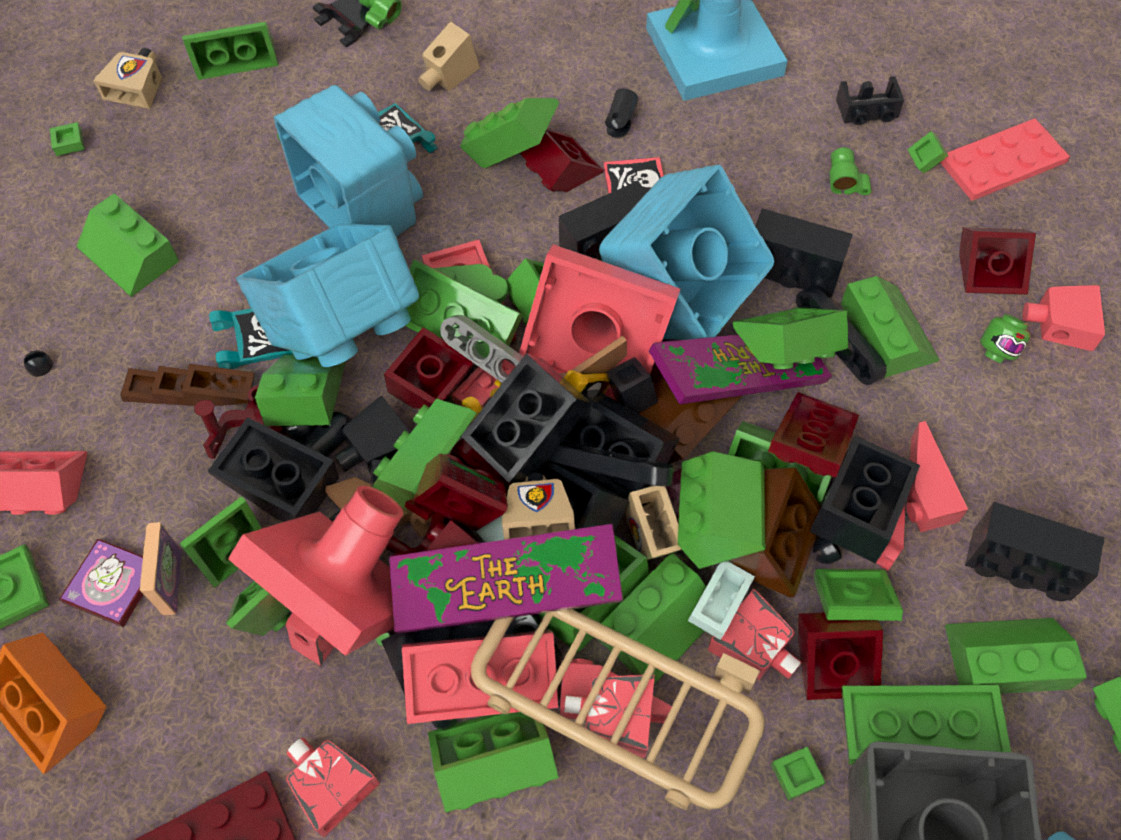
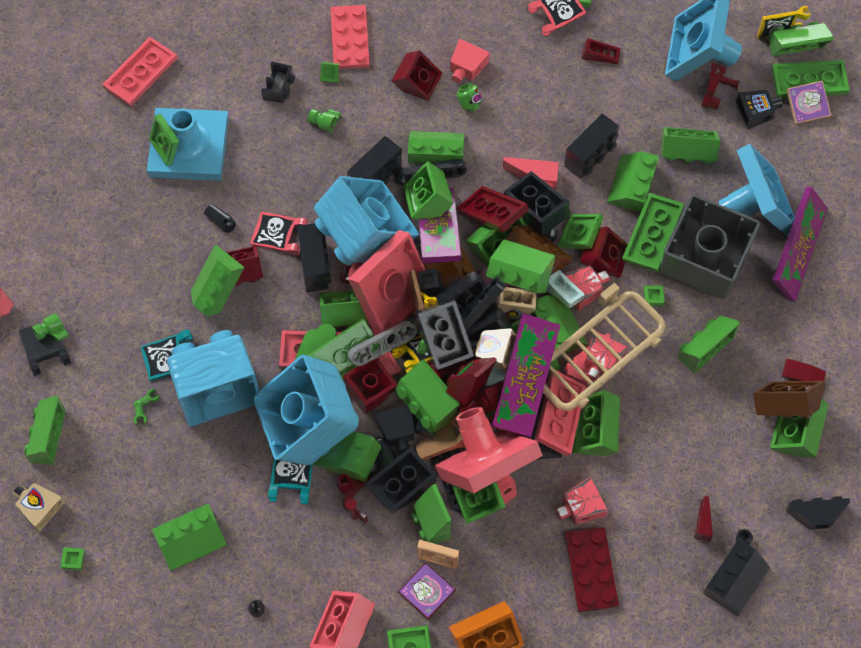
camera: 70 degrees left, 5 degrees up
(188, 386) = (314, 522): reddish brown slope -> none
(449, 59) = (127, 295): tan torso -> none

